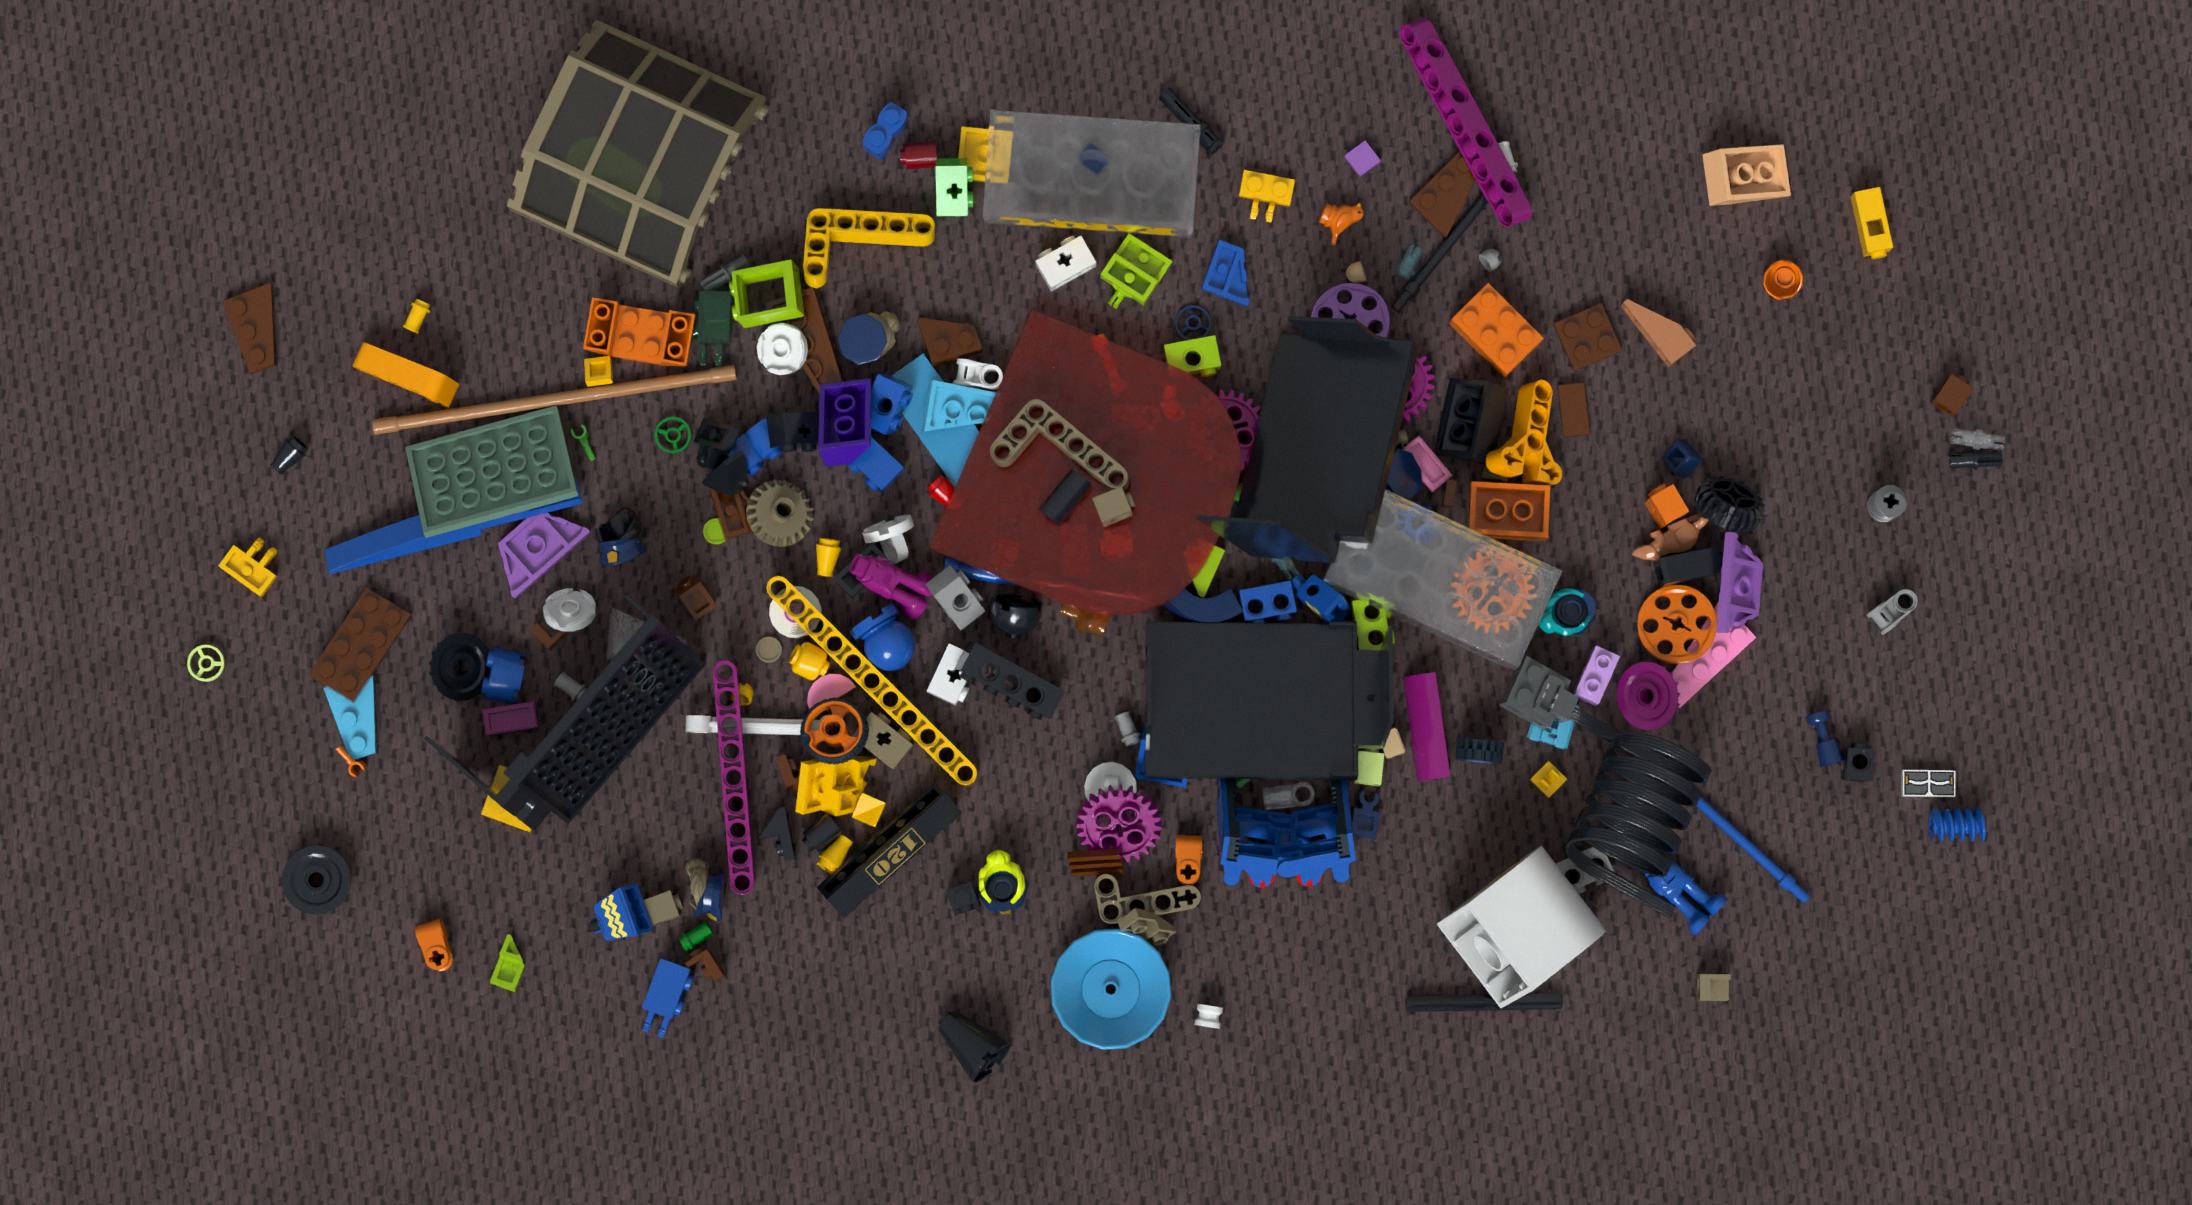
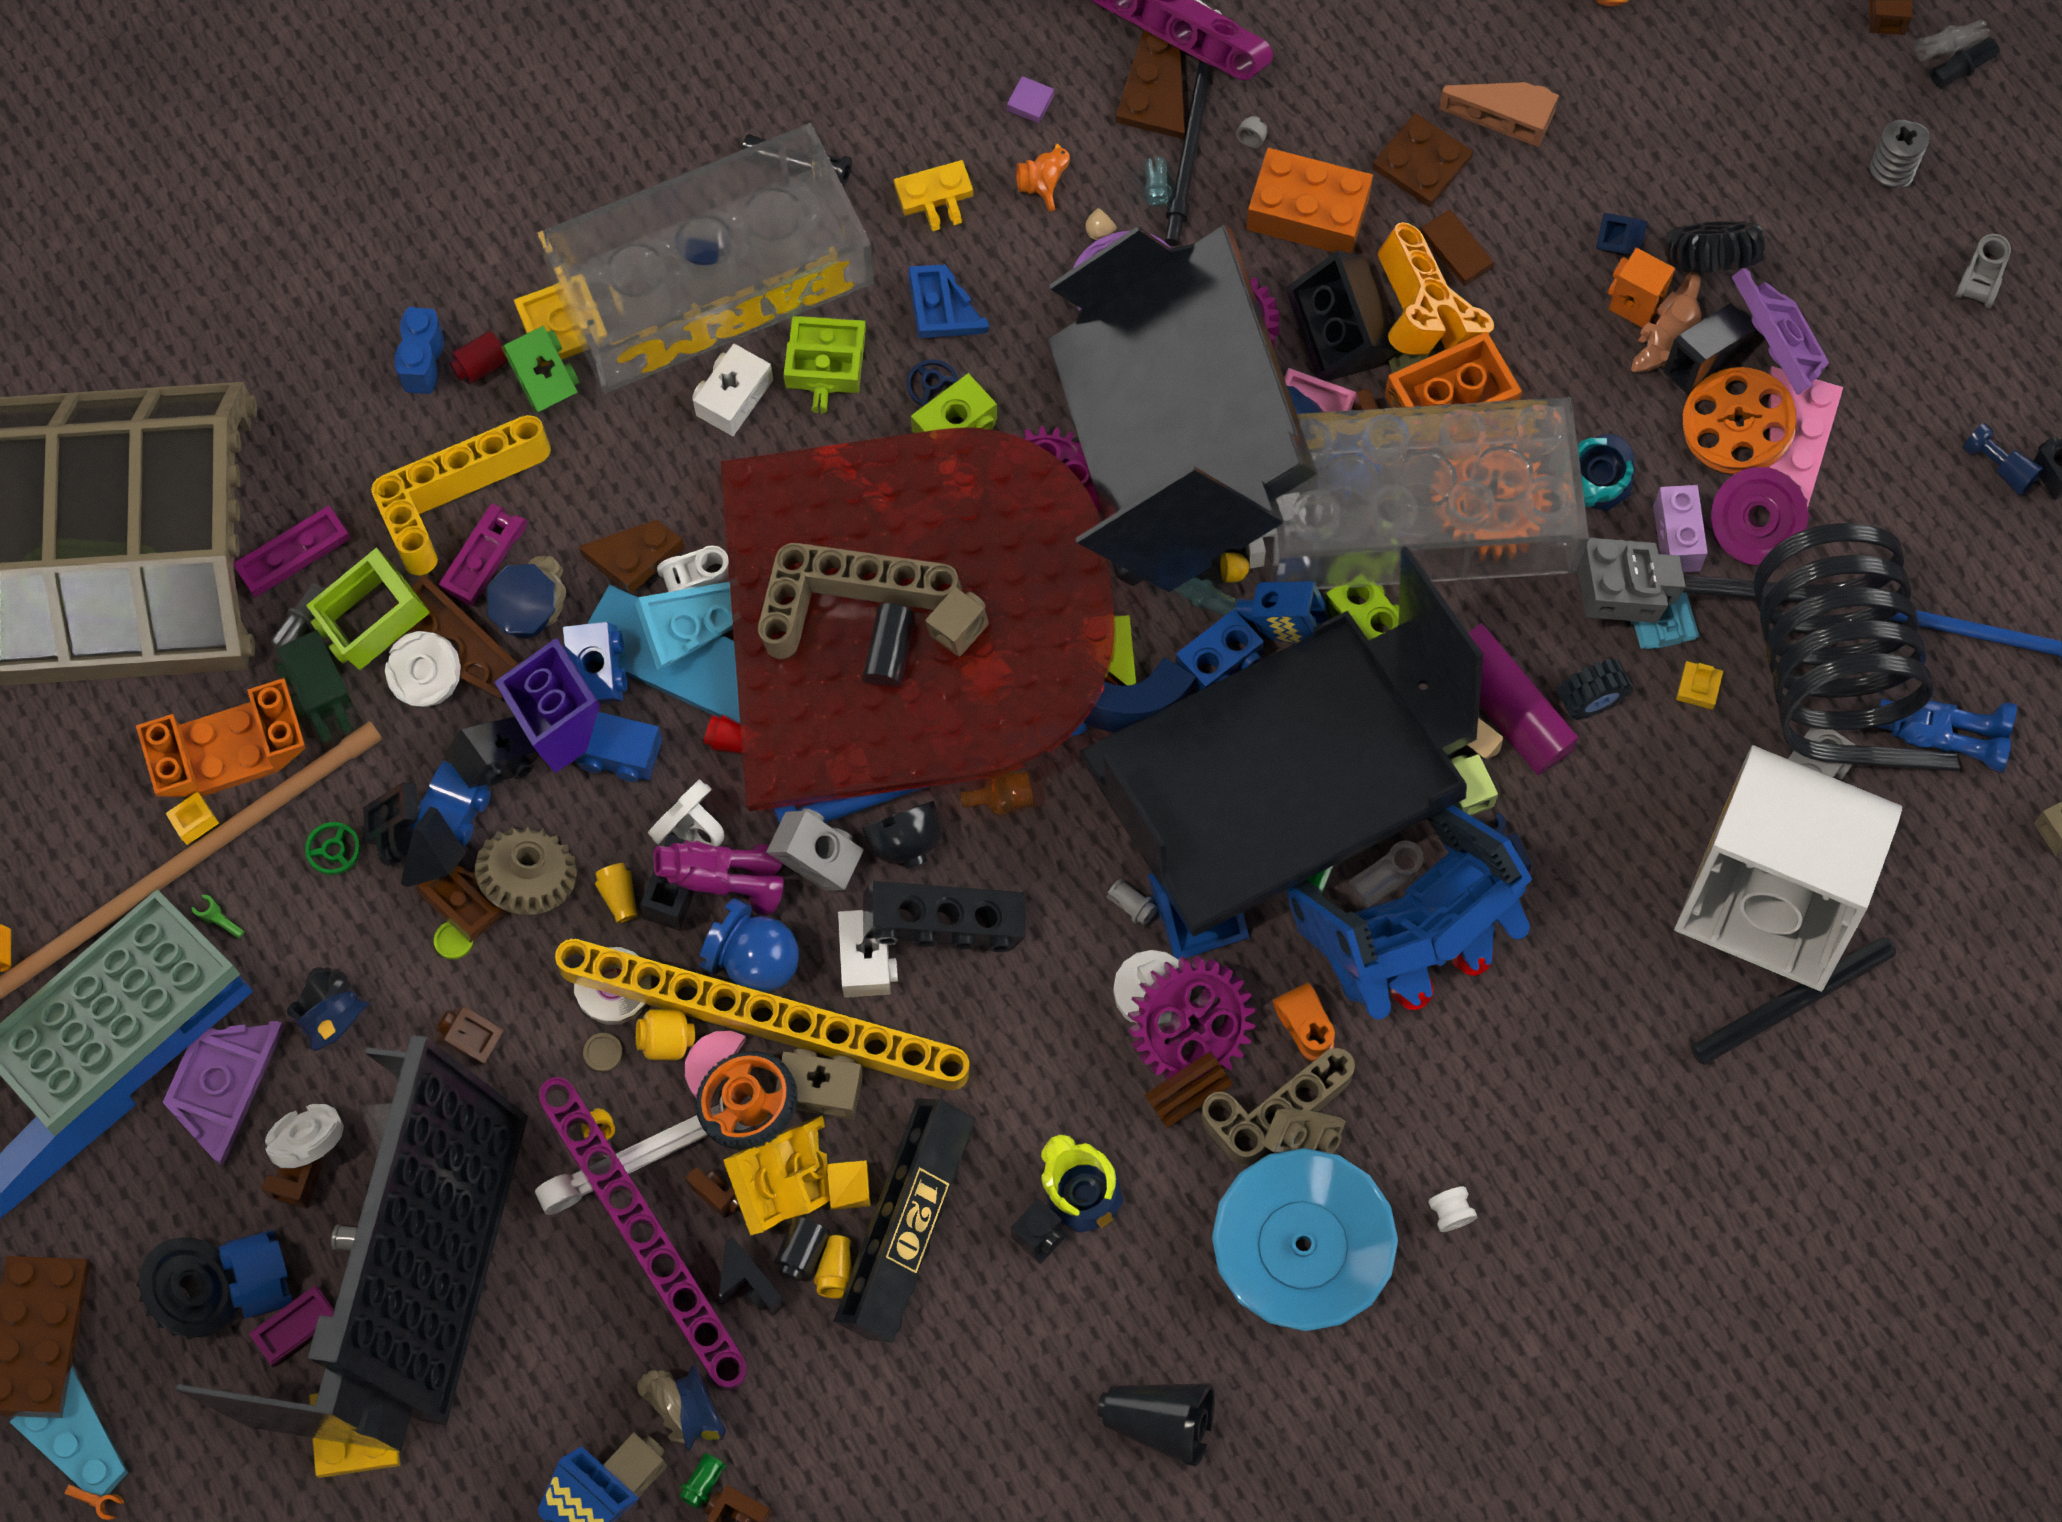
camera: 25 degrees left, 15 degrees down
(742, 225) = (291, 551): none -> magenta plate
(856, 290) = (482, 554): none -> magenta plate

